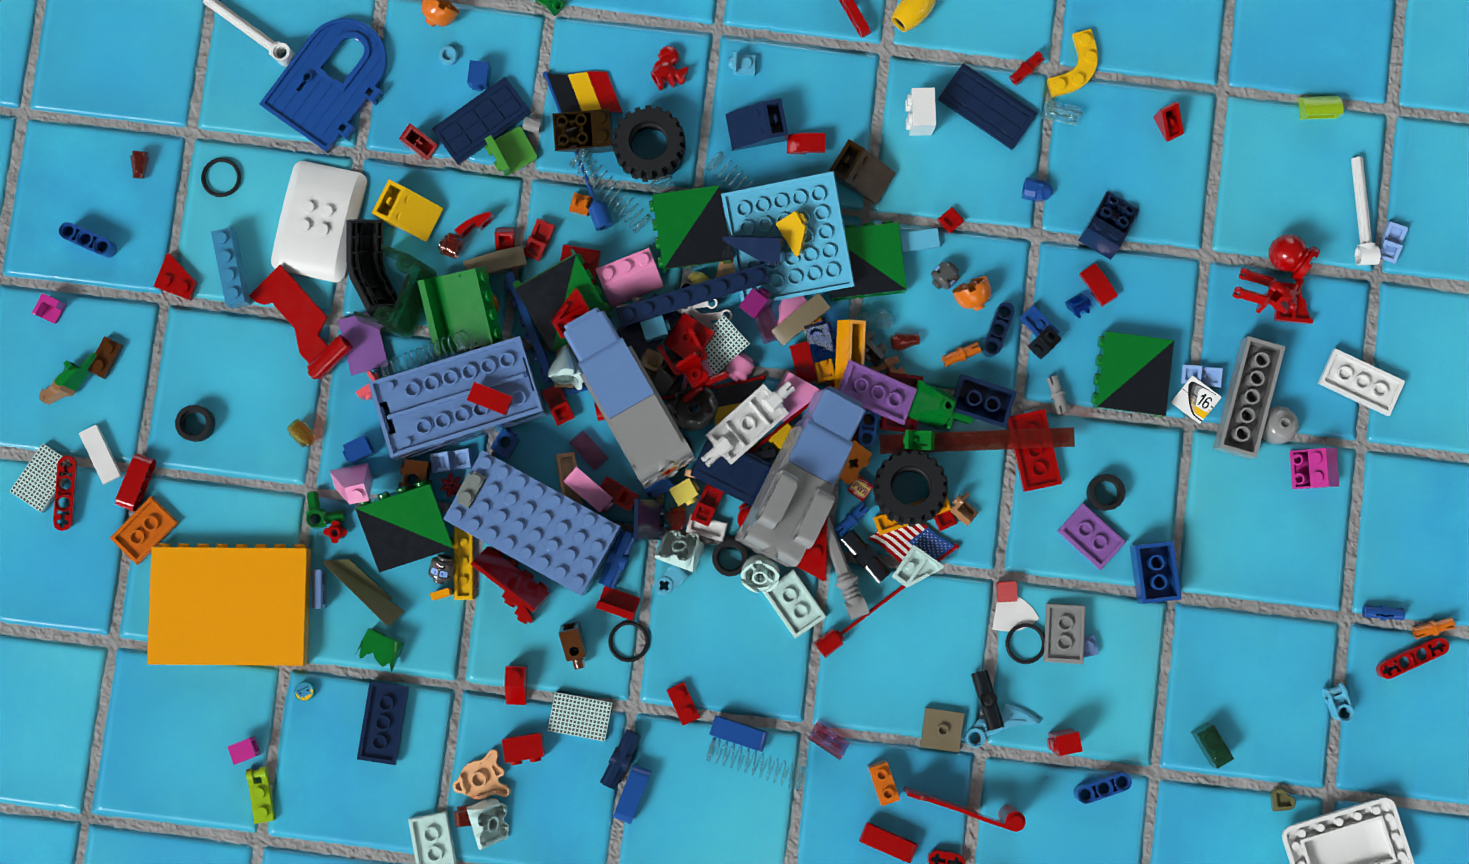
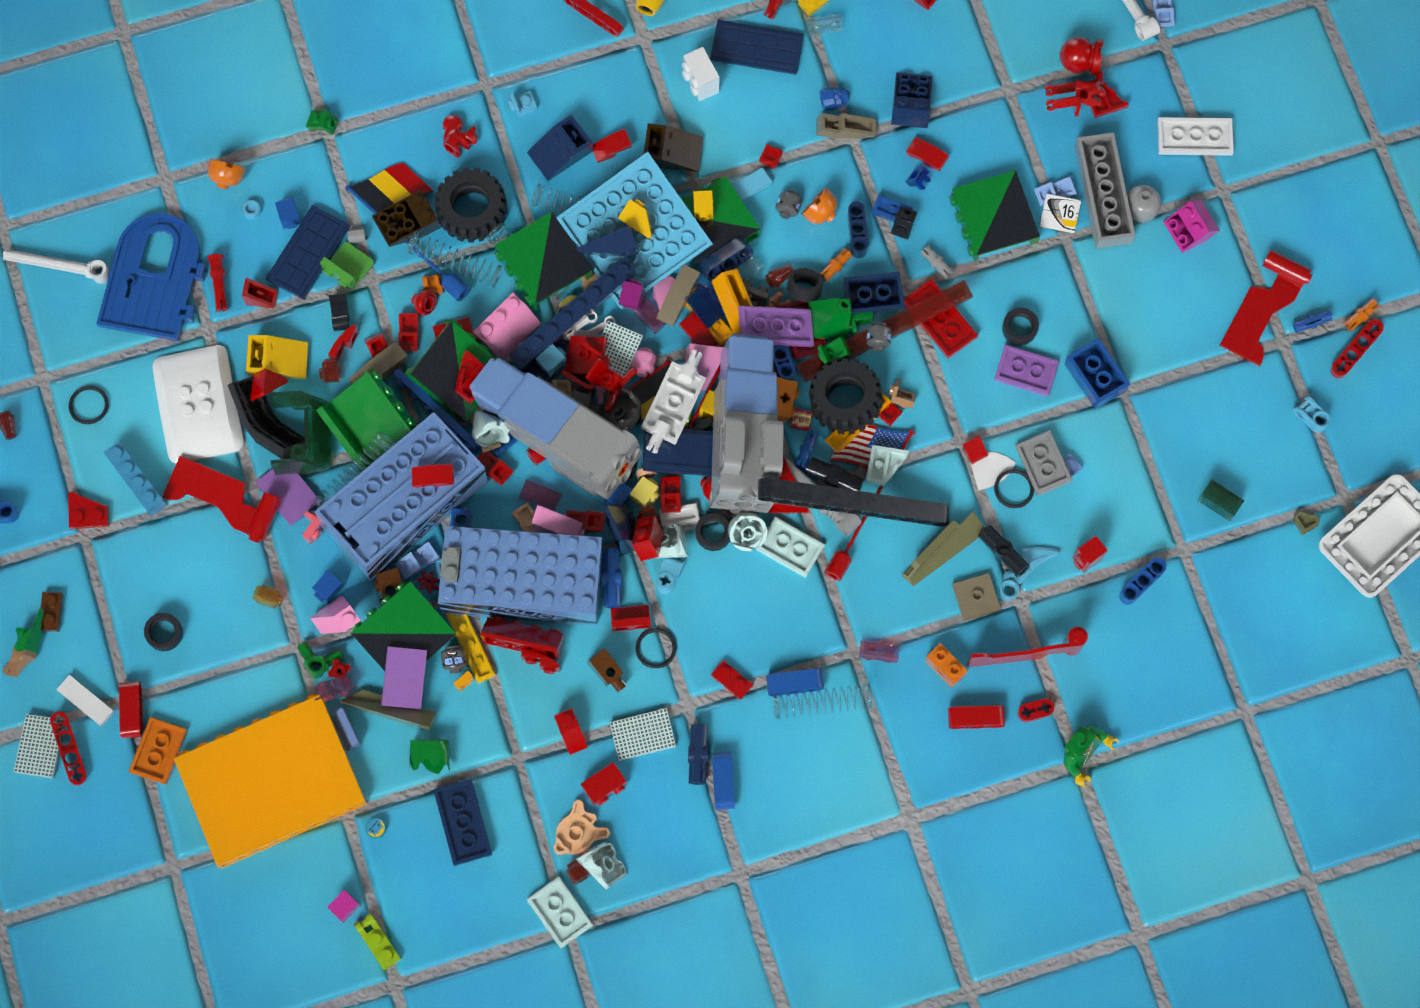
camera: 25 degrees left, 10 degrees down
(313, 549) = (328, 692): none -> clear pink hinge
(384, 232) = (266, 382): none -> red slope
(387, 568) = (404, 677): none -> medium lavender tile
(389, 105) = (217, 274): none -> red pin
(484, 193) = (339, 311): none -> black leg
(565, 218) = (424, 302): none -> red brick
(664, 541) = (647, 538): none -> red brick
(860, 304) = (726, 258): none -> dark blue beam
(863, 243) = (703, 205): none -> yellow brick
(866, 597) = (852, 502): none -> black beam
(915, 370) = (807, 276): none -> black tyre
(933, 670) = (944, 547): none -> olive wedge
(967, 445) = (878, 336): none -> dark grey head
(1034, 223) = (845, 126): none -> dark tan slope
(1342, 573) = (1261, 304): none -> red door

